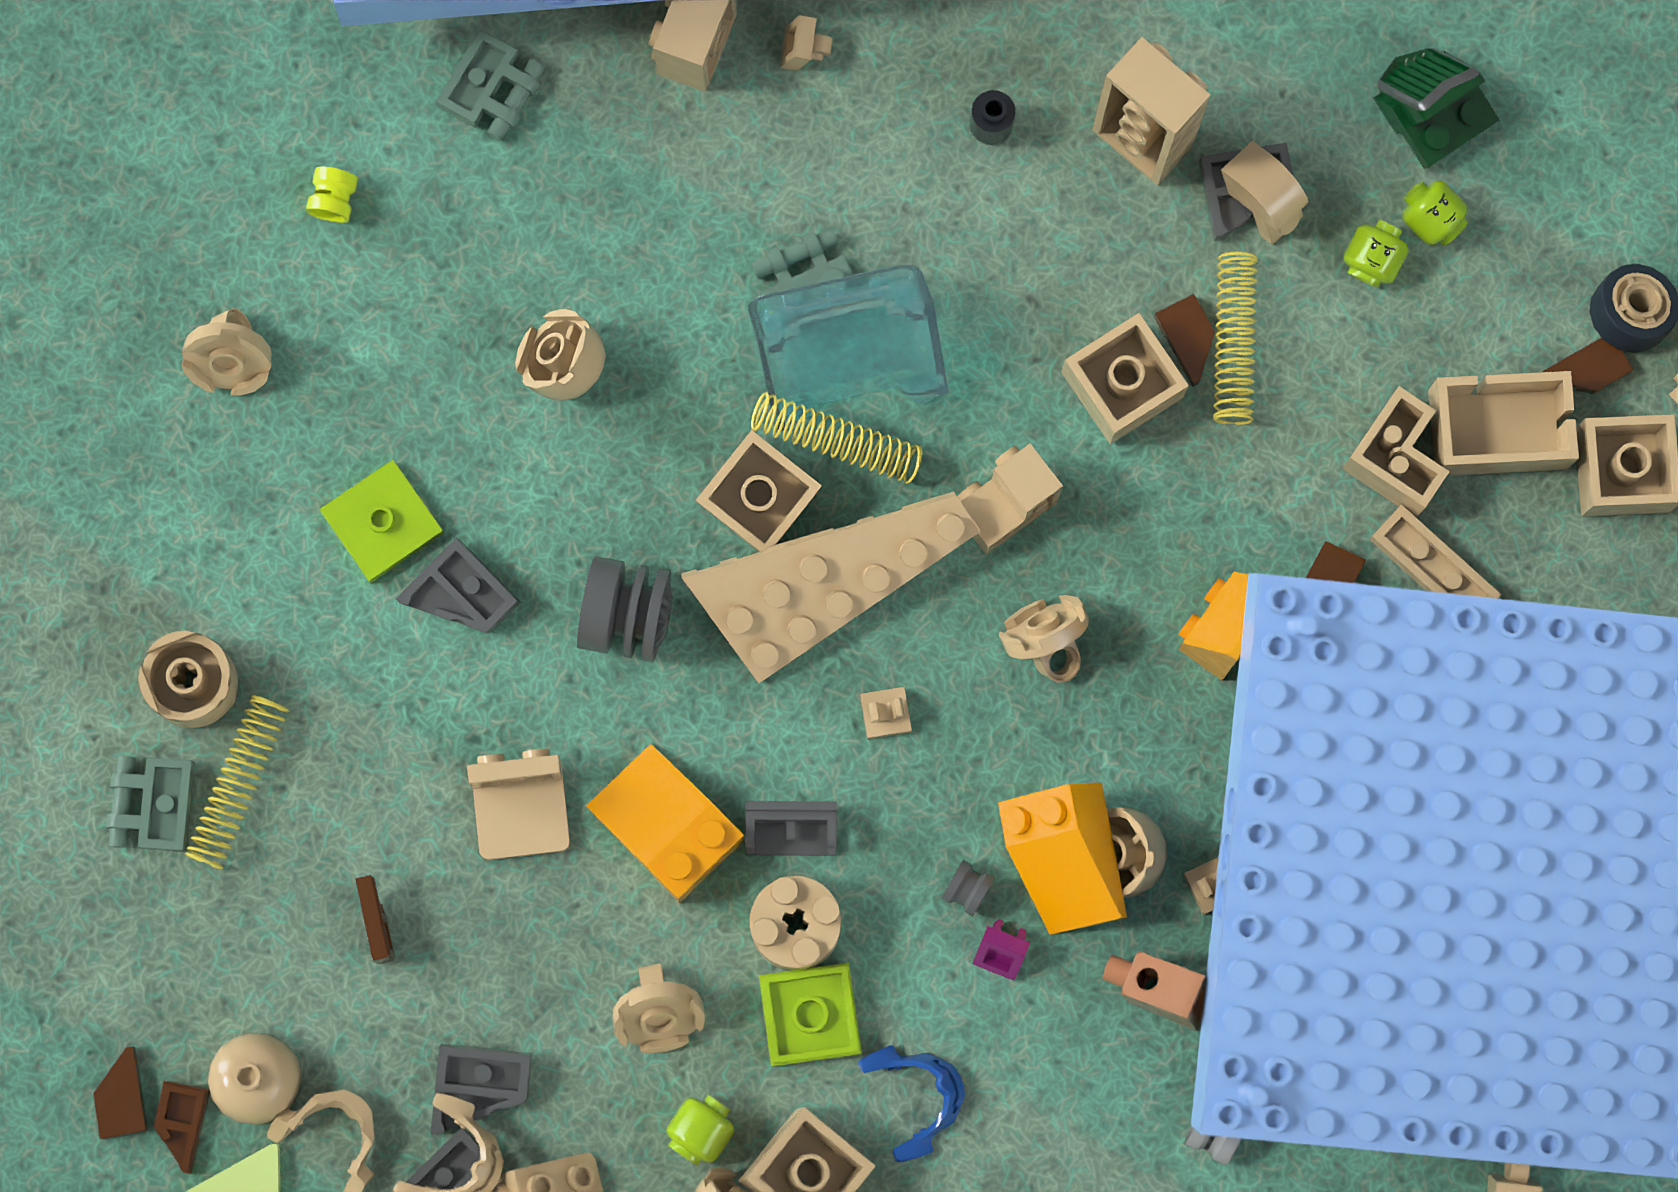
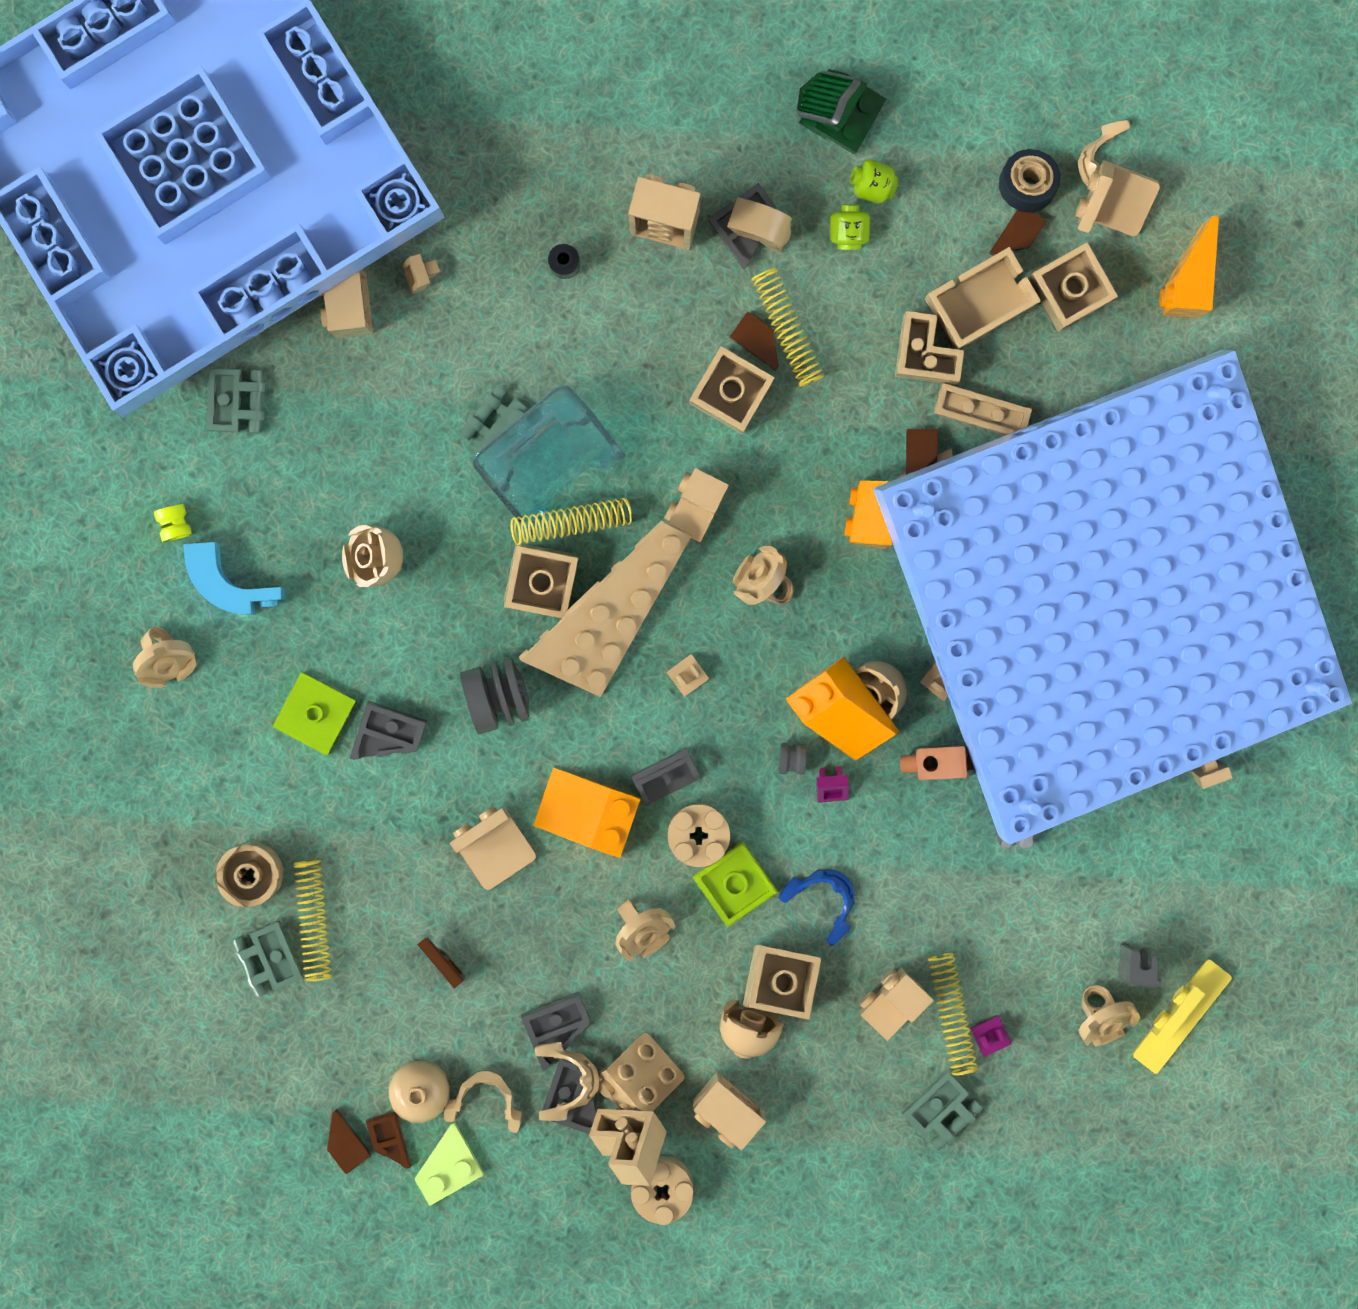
camera: 20 degrees left, 10 degrees up
(340, 279) = (207, 576): none -> medium azure arch
(700, 1130) = (704, 987): lime head -> none

